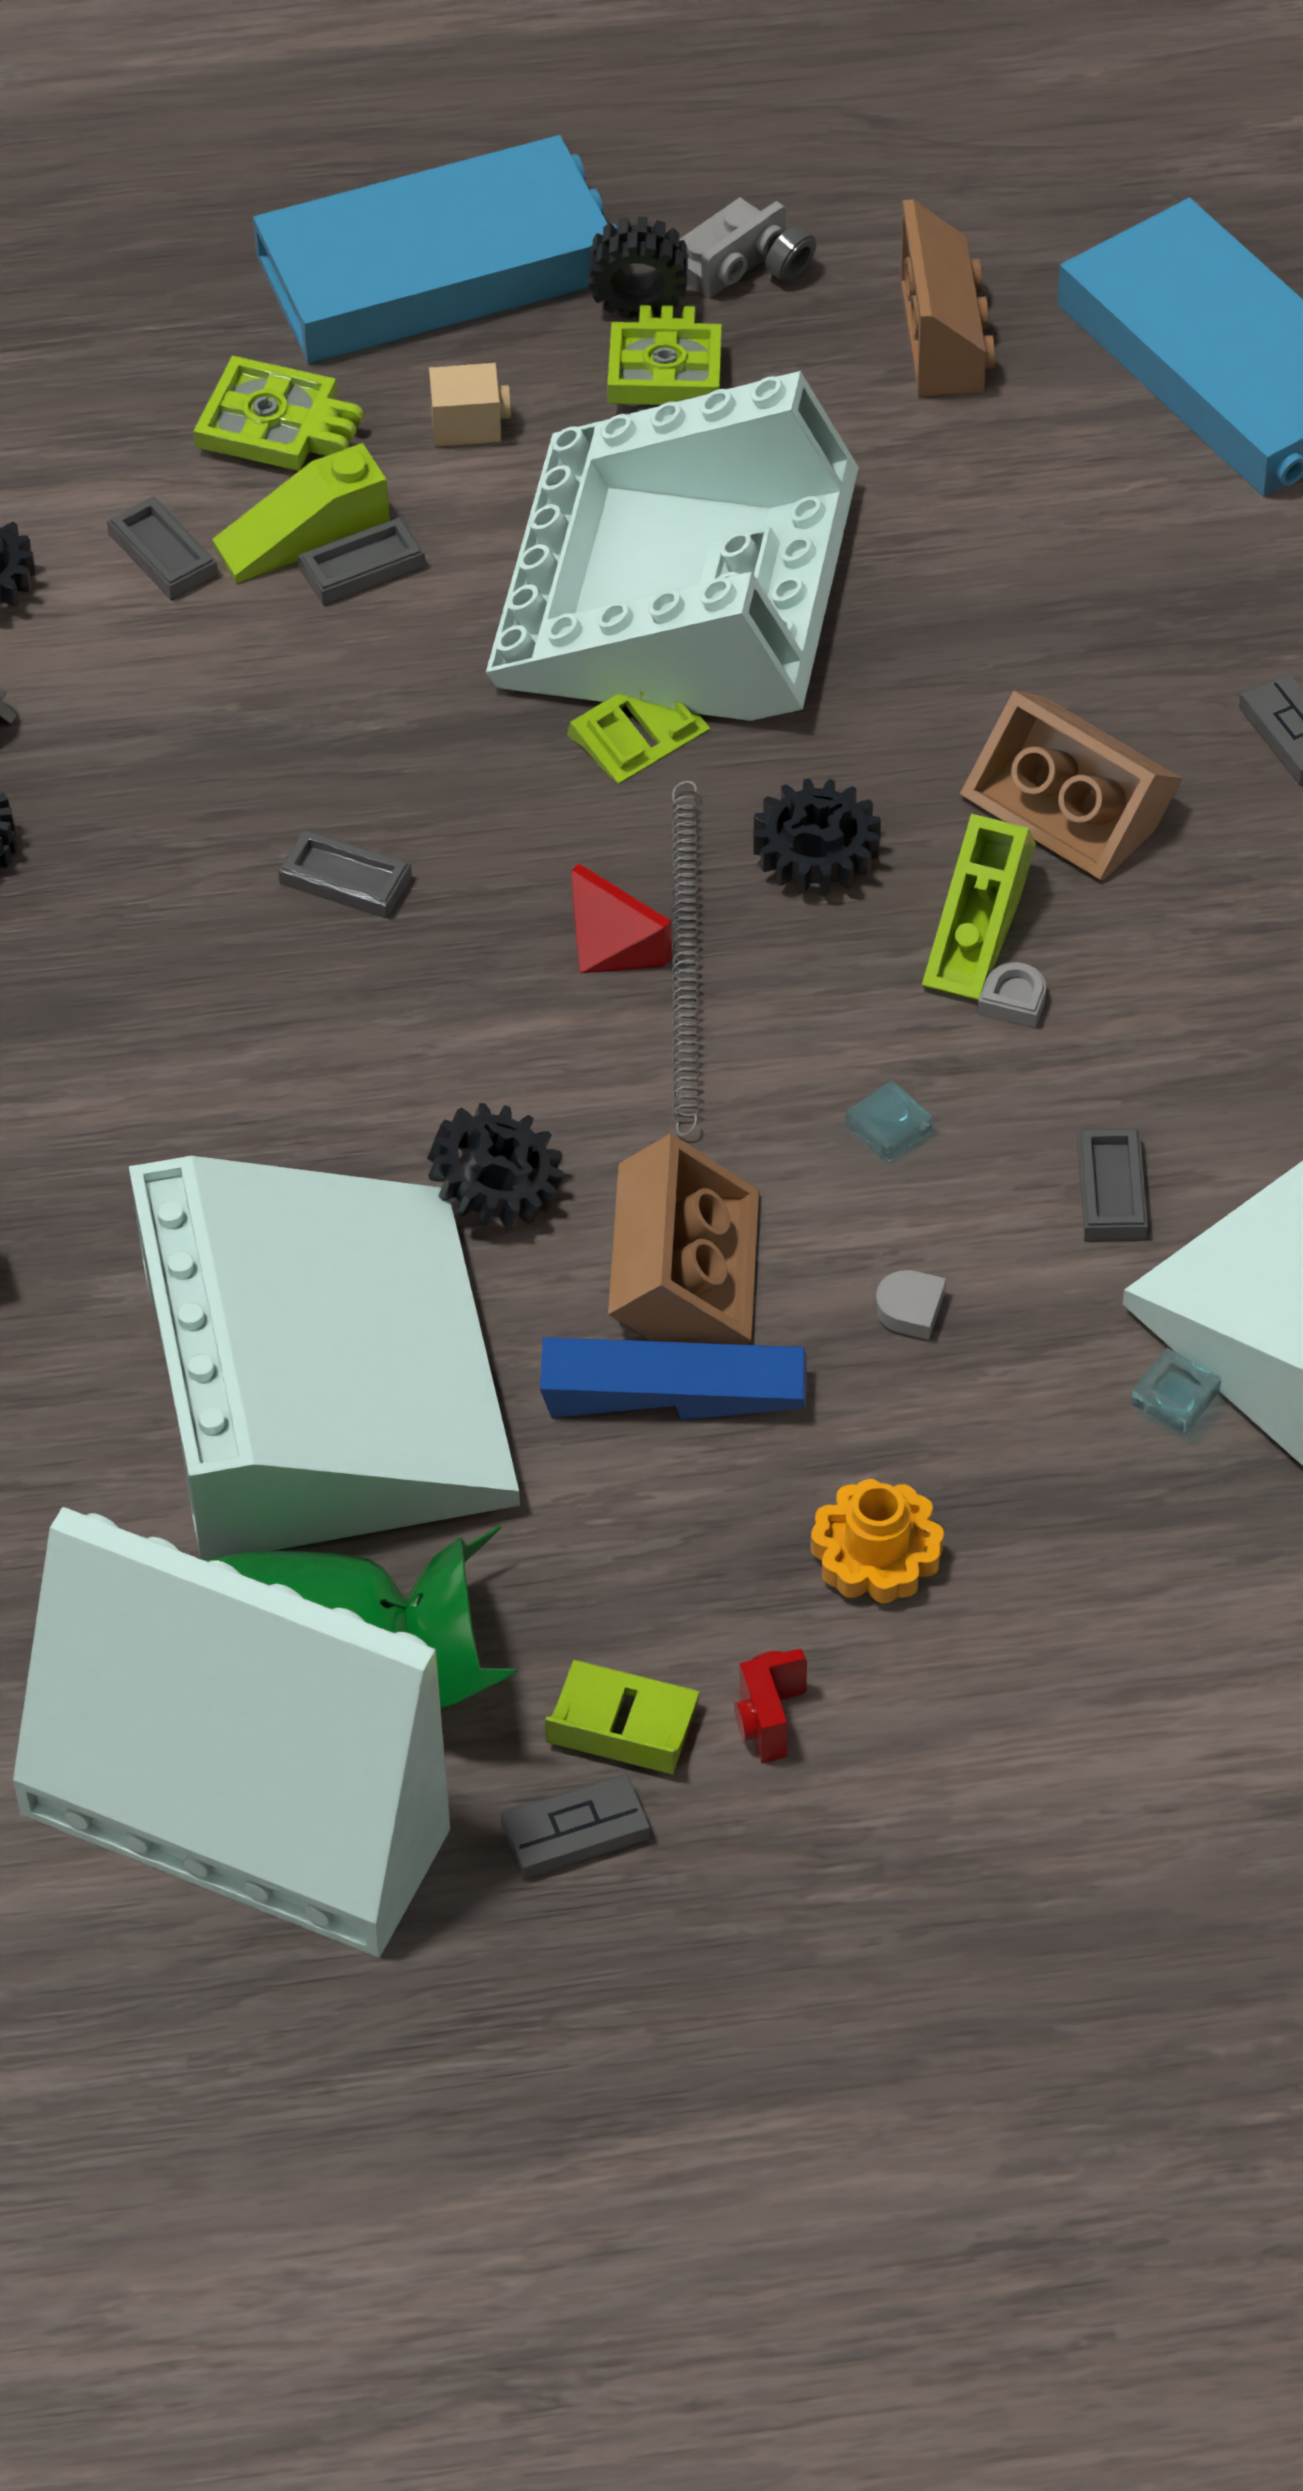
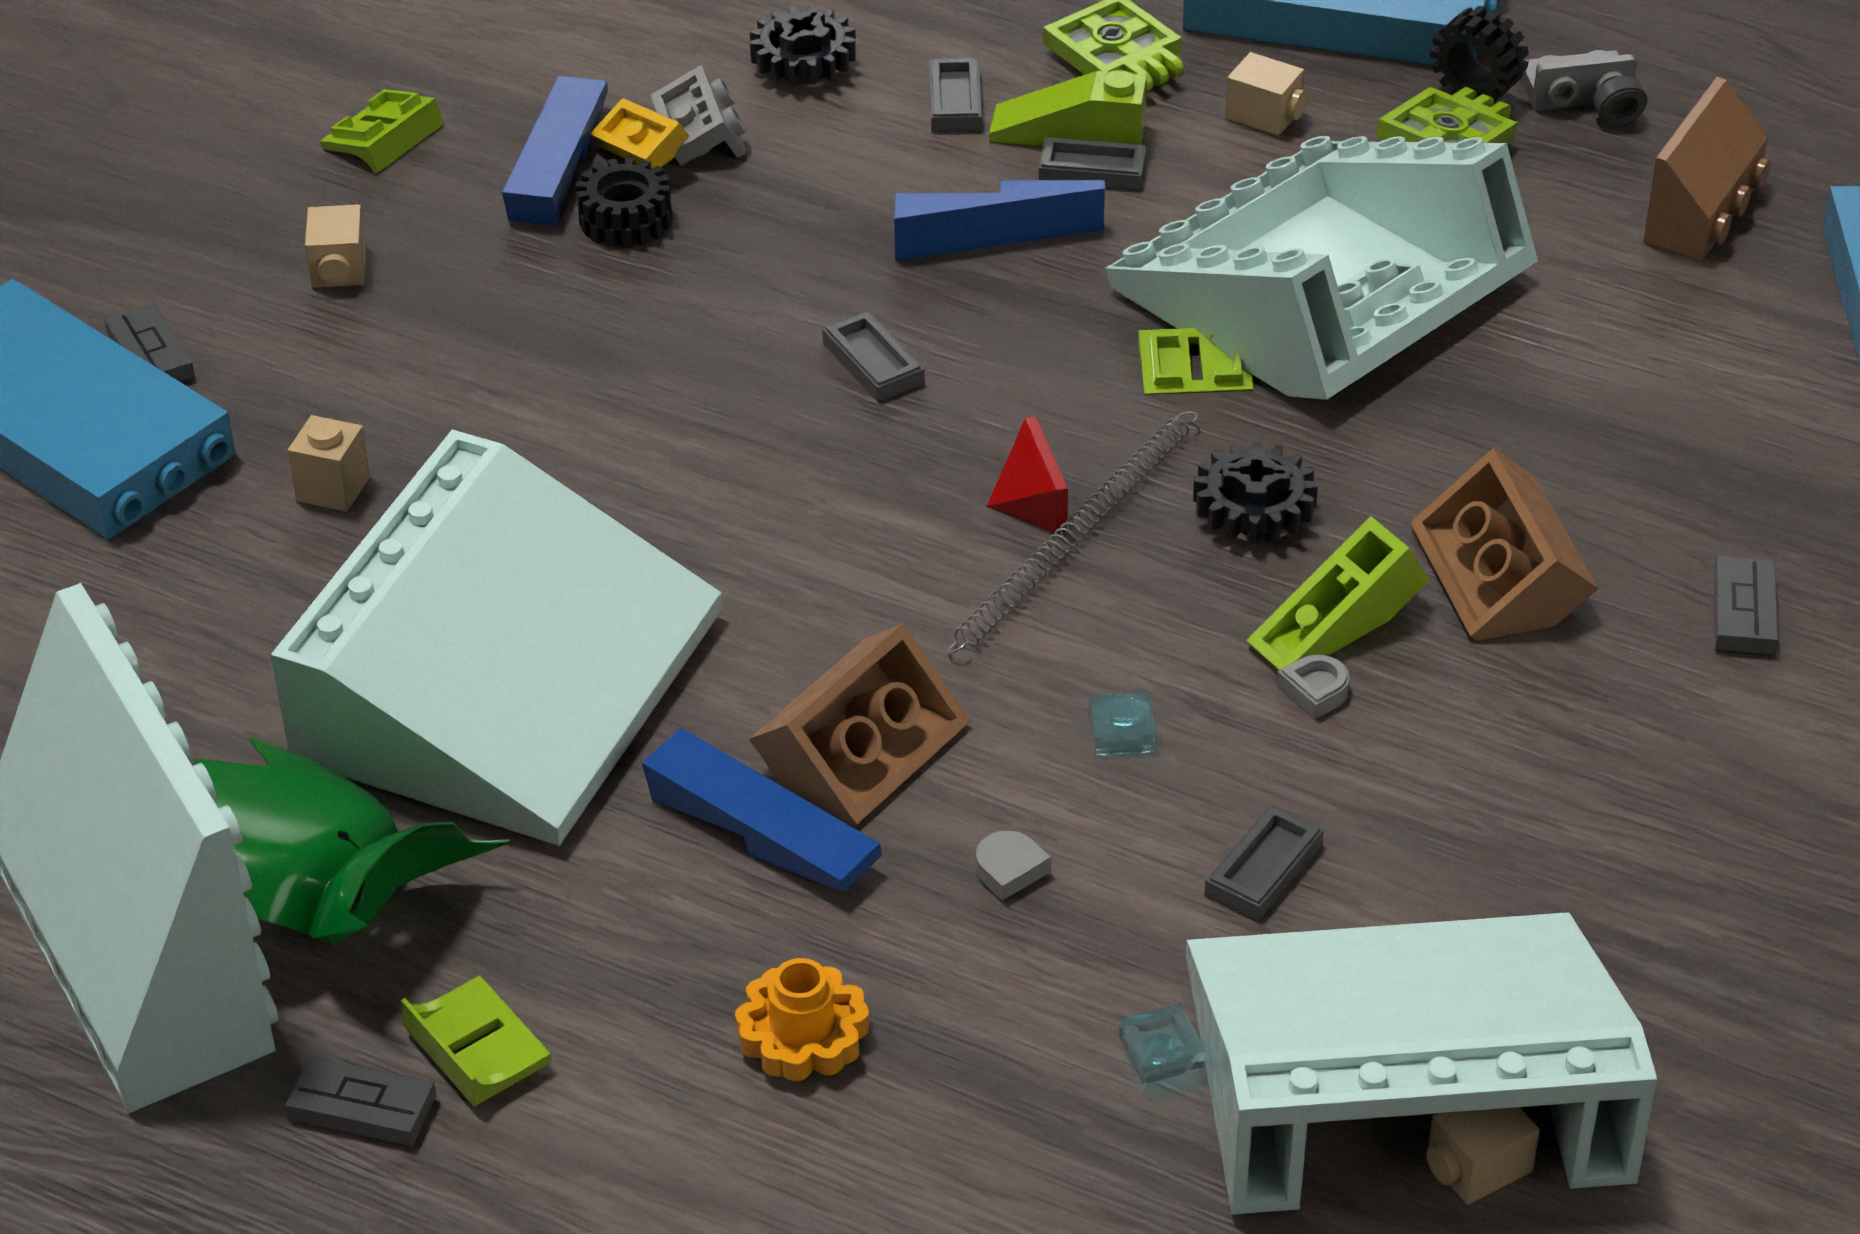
camera: 35 degrees right, 10 degrees down
(353, 650) = (1019, 213): none -> blue slope
(495, 1165) = (771, 594): black gear -> none
(762, 1686) = (590, 1081): red bracket -> none

